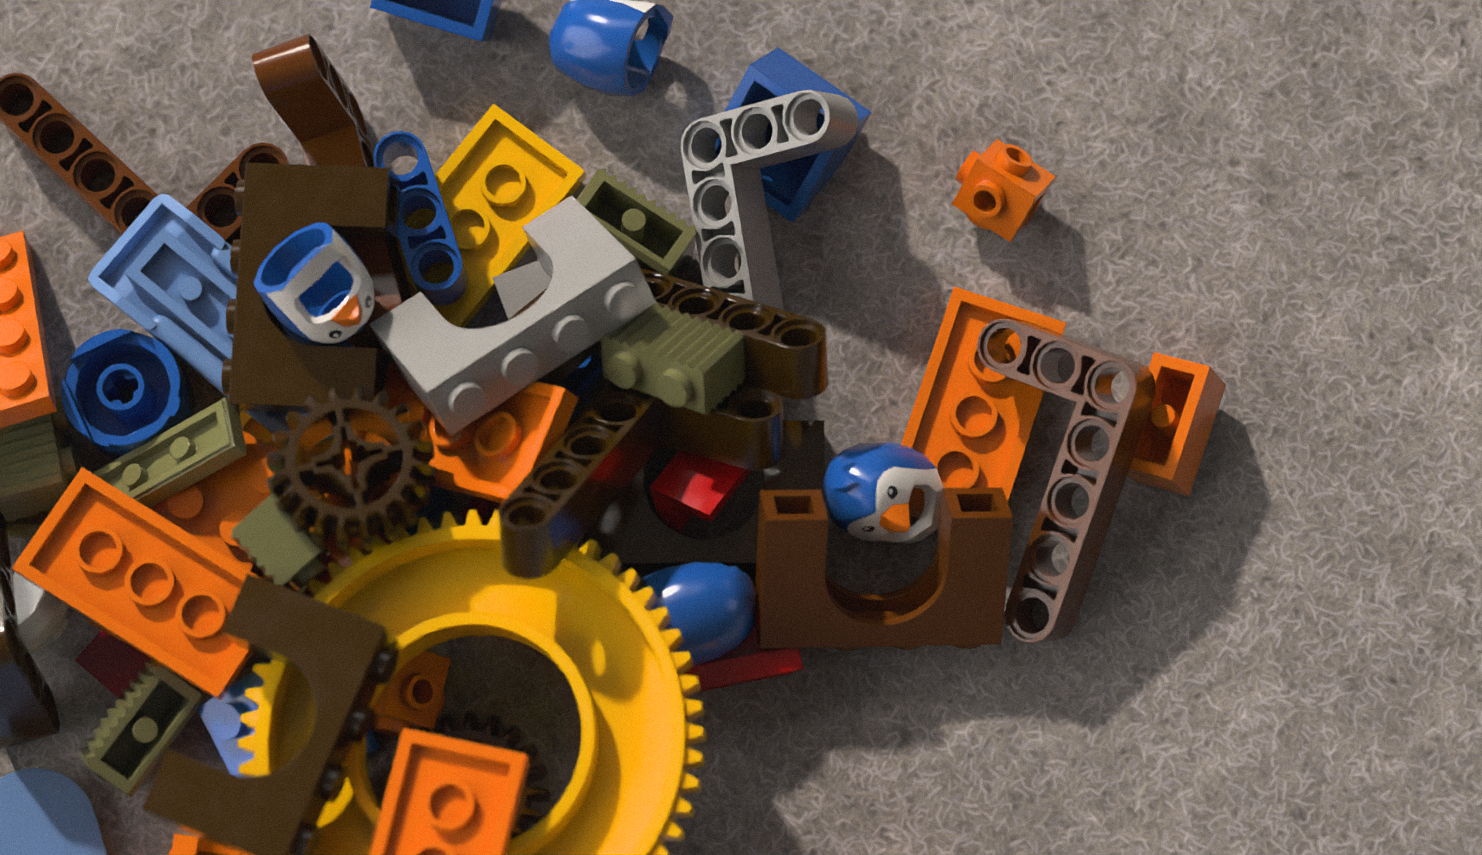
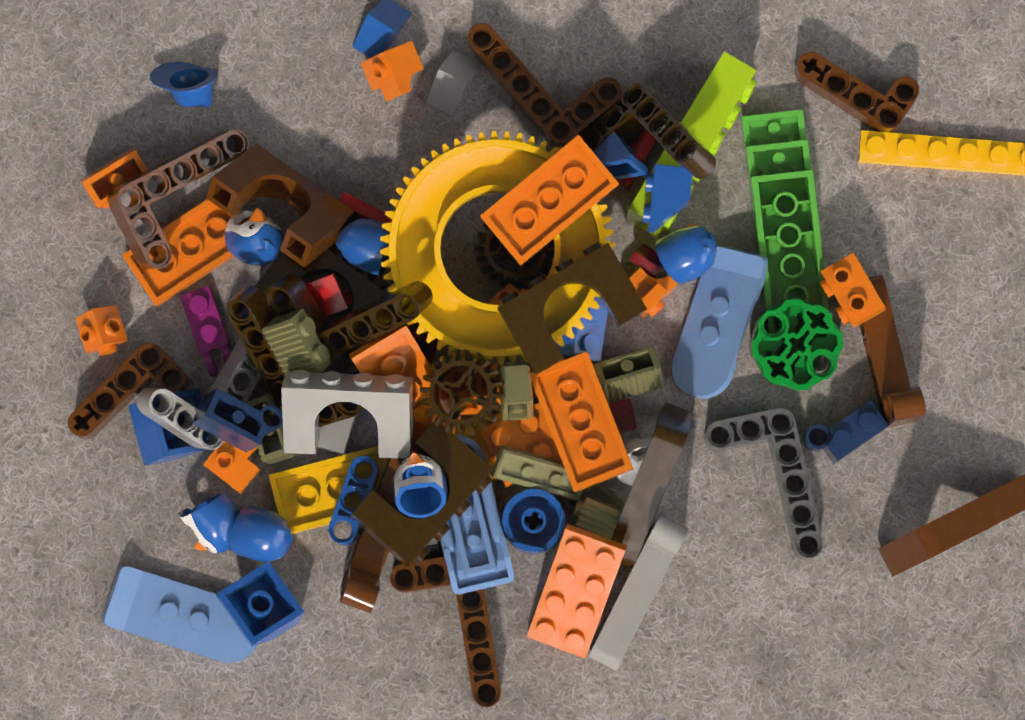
camera: 145 degrees left, 5 degrees up
(521, 70) = (260, 535): none -> blue piece
(646, 144) = (232, 466): none -> orange brick
(677, 179) = (235, 420): none -> dark blue hinge
(855, 319) = (206, 325): none -> magenta hinge
(897, 125) = (122, 395): none -> reddish brown beam
(1191, 658) = (186, 82): none -> blue piece

